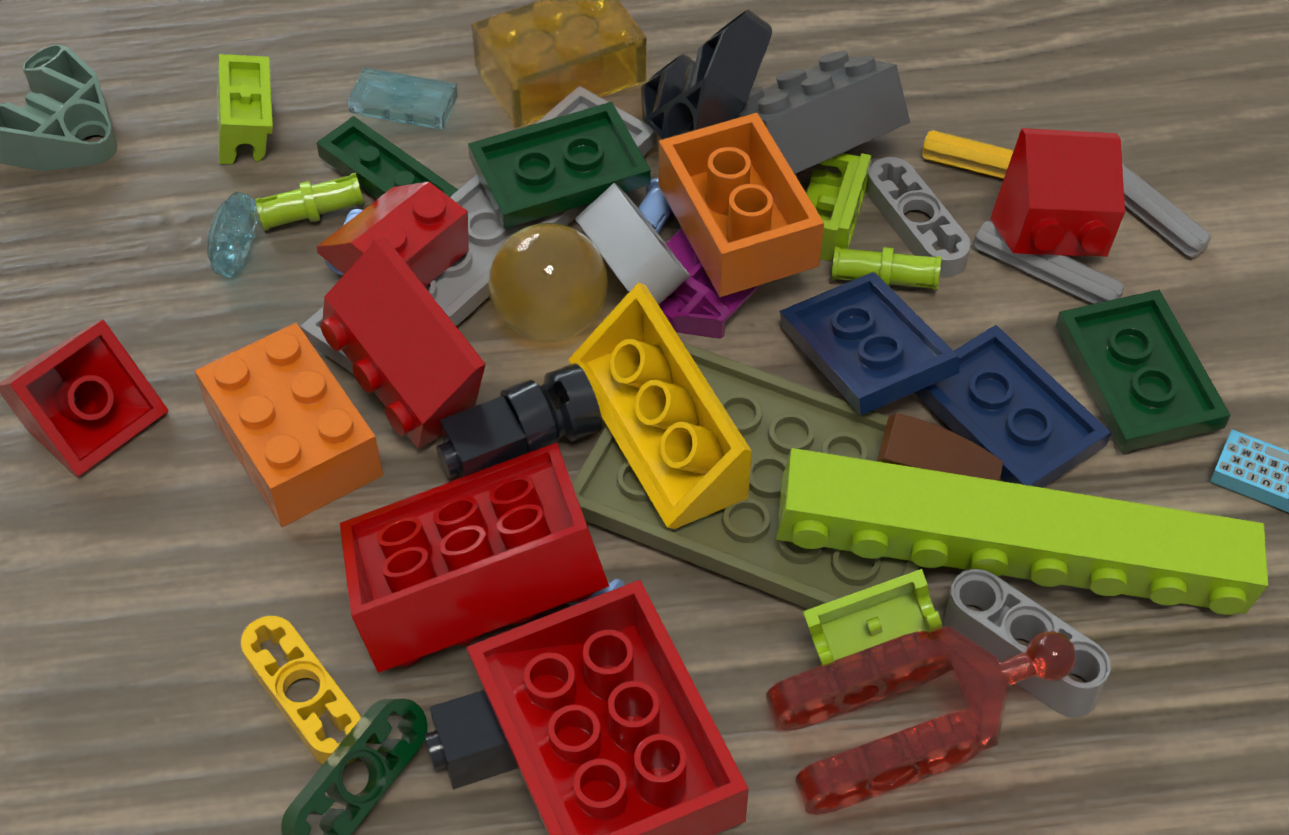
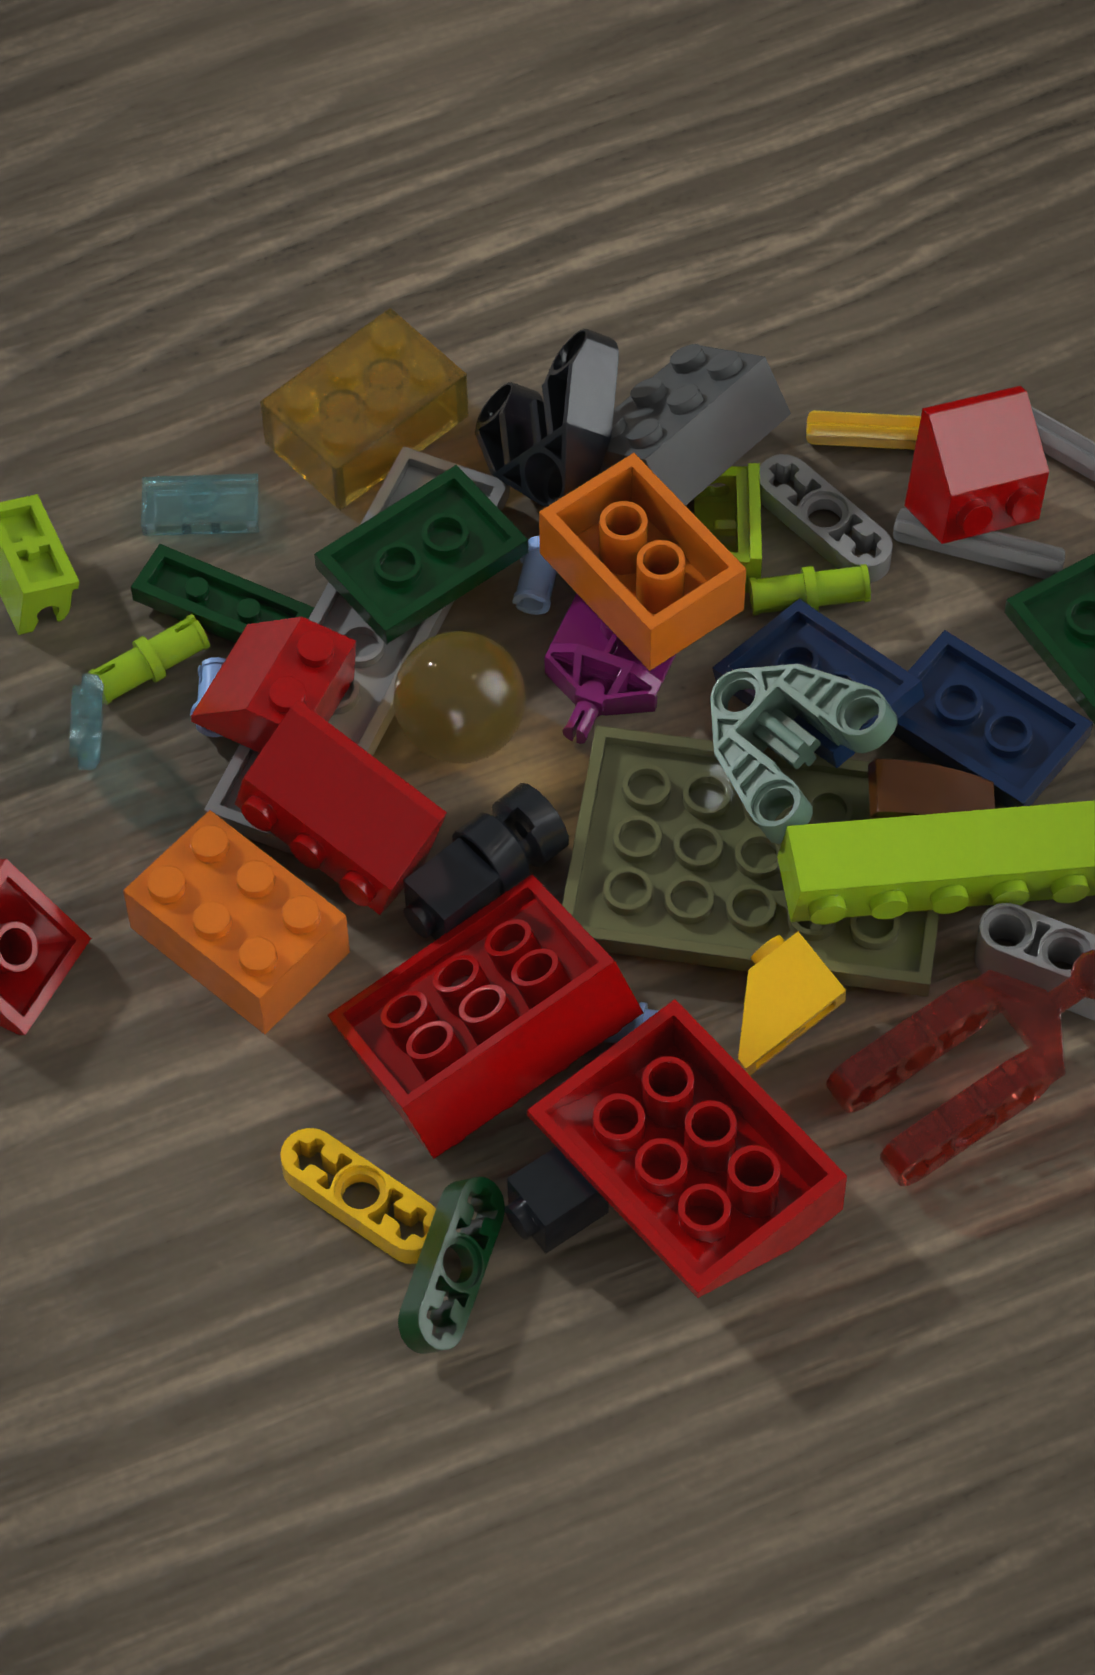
camera: 15 degrees left, 5 degrees up
(631, 244) = (536, 634): light grey beam -> none
(664, 413) = (635, 813): yellow slope -> none
(744, 608) = (784, 998): none -> yellow slope
(870, 355) = (782, 692): none -> sand green connector
(872, 617) = (912, 981): lime hinge -> none

